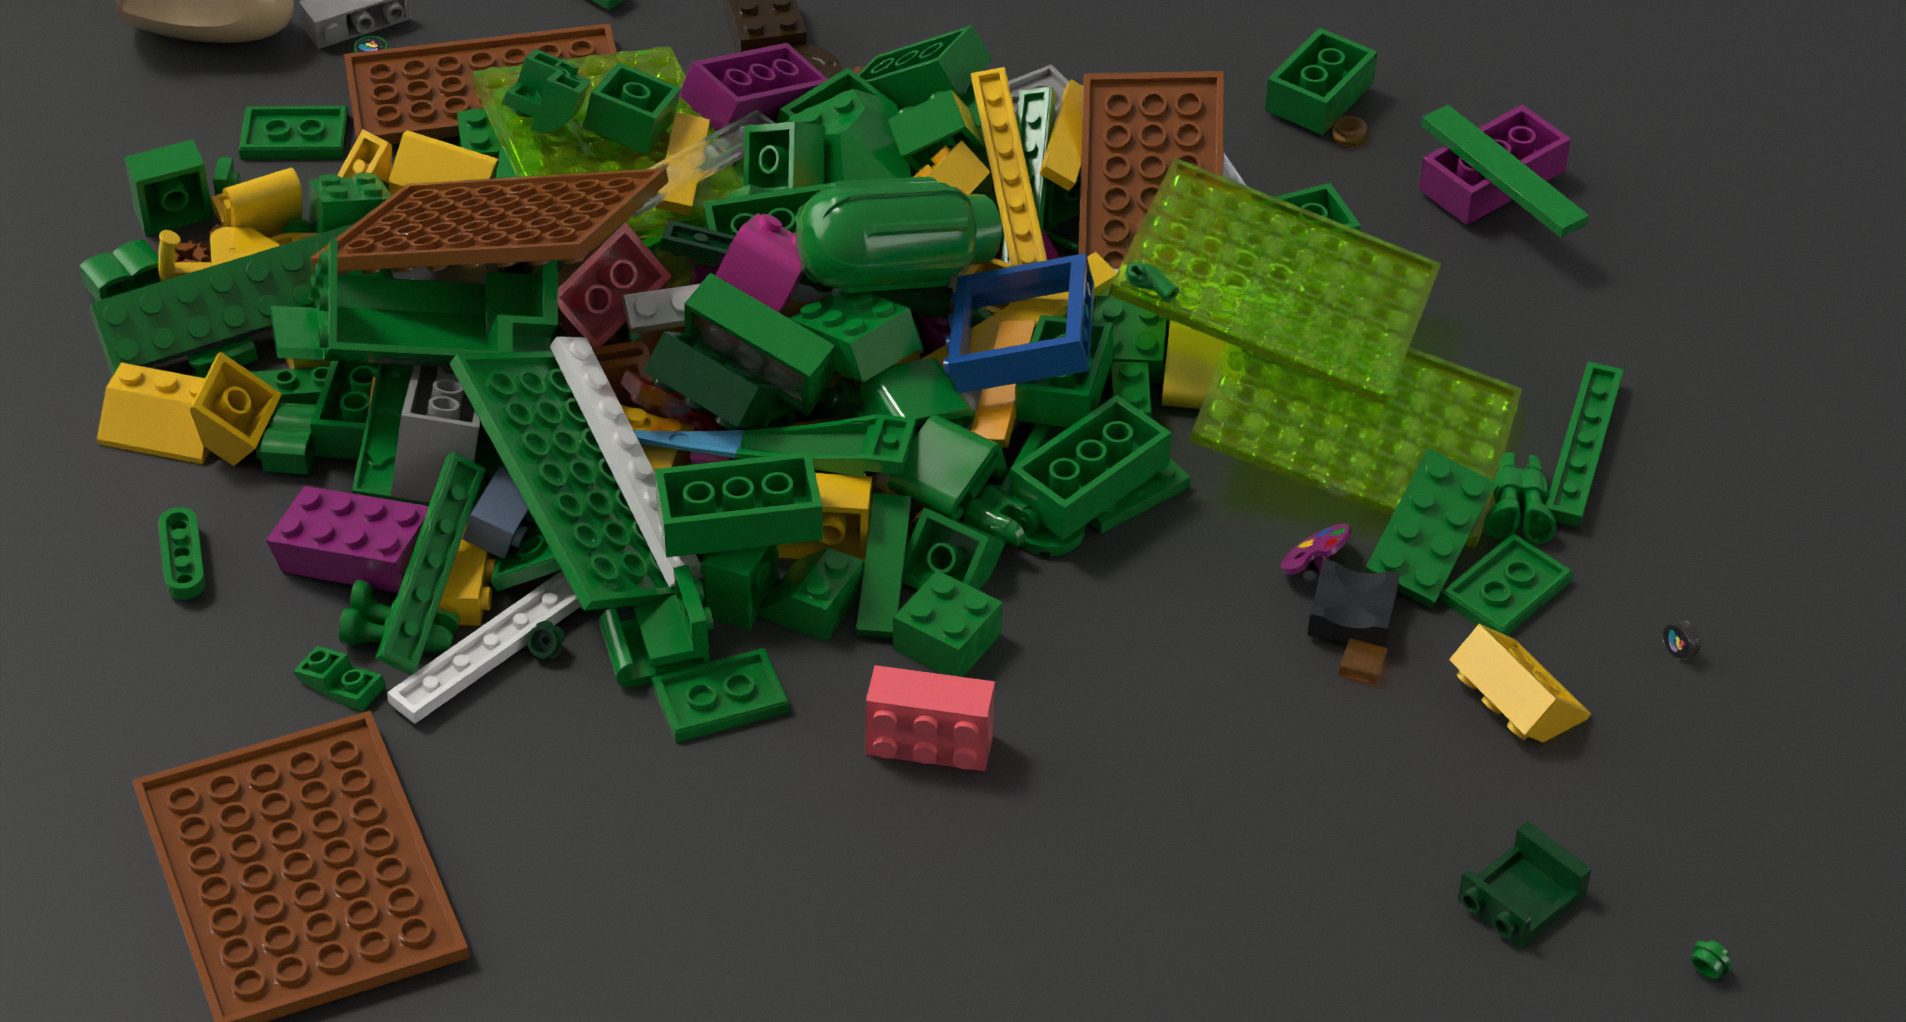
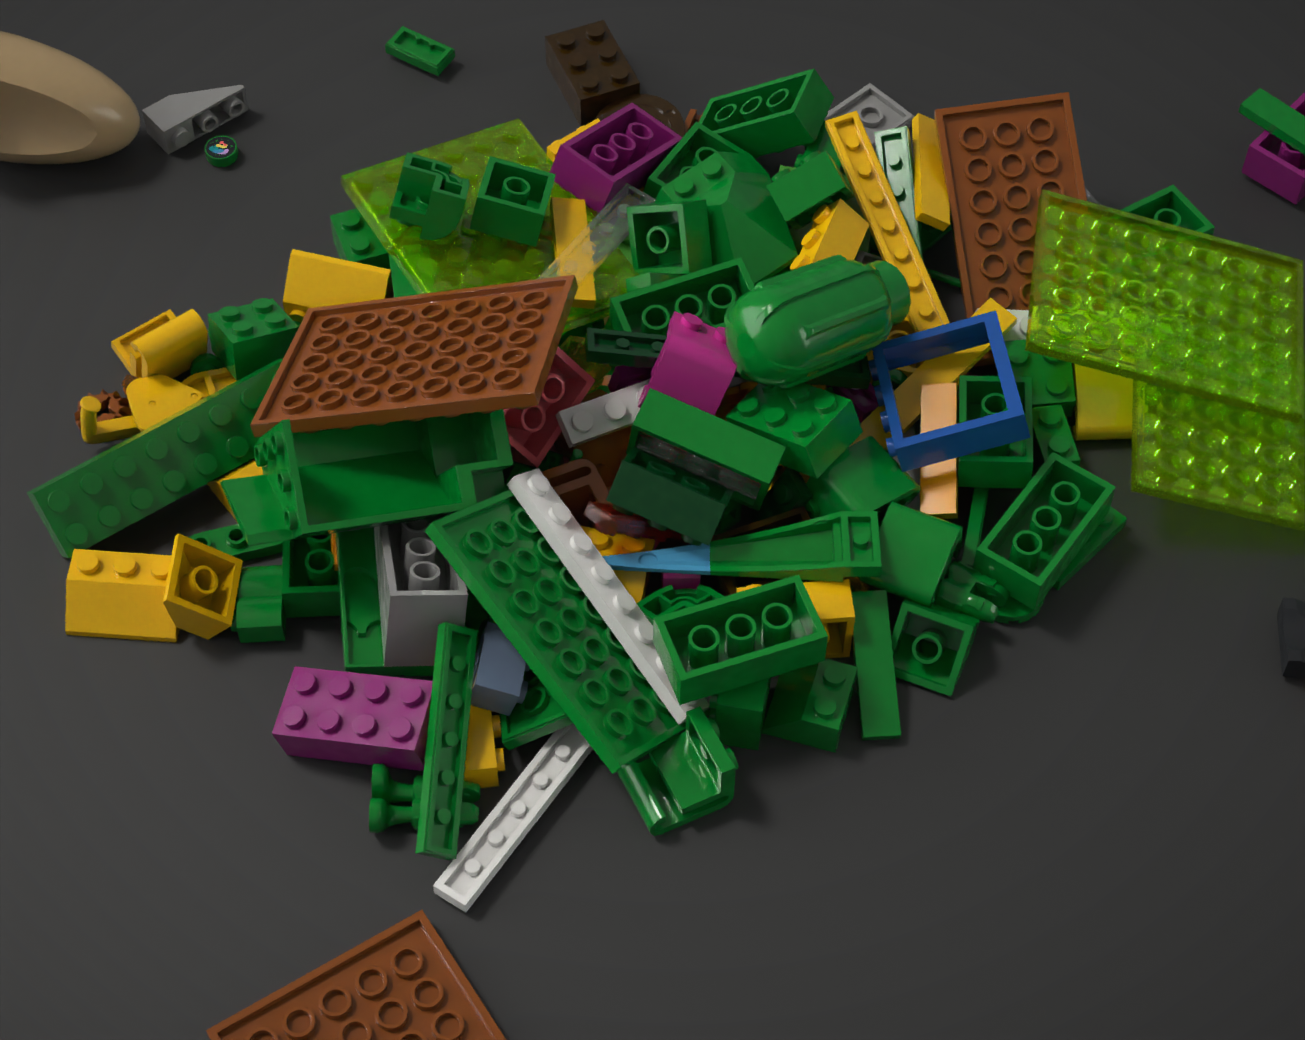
camera: 10 degrees left, 10 degrees up
(122, 271) = (44, 439): green brick -> none
(169, 187) = (68, 337): green brick -> none
(181, 553) = (185, 740): green plate -> none
(225, 175) = (119, 317): green plate -> none
(239, 350) = (167, 521): green bar -> none
(294, 132) = (170, 252): green tile -> none
(337, 679) = (378, 874): green slope -> none
(368, 155) = (255, 280): yellow slope -> none
(429, 83) = (291, 185): dark orange plate -> none
(536, 643) = (570, 807): dark green plate -> none
(720, 695) = (752, 831): green tile -> none
(929, 718) = (969, 835): coral brick -> none
(947, 625) = (951, 722): green brick -> none
(1150, 278) = (1065, 330): green arm -> none
(1316, 548) = (1271, 577): magenta piece -> none
(1321, 81) = (1126, 71): green brick -> none
(1350, 131) = (1161, 117): clear orange tile -> none

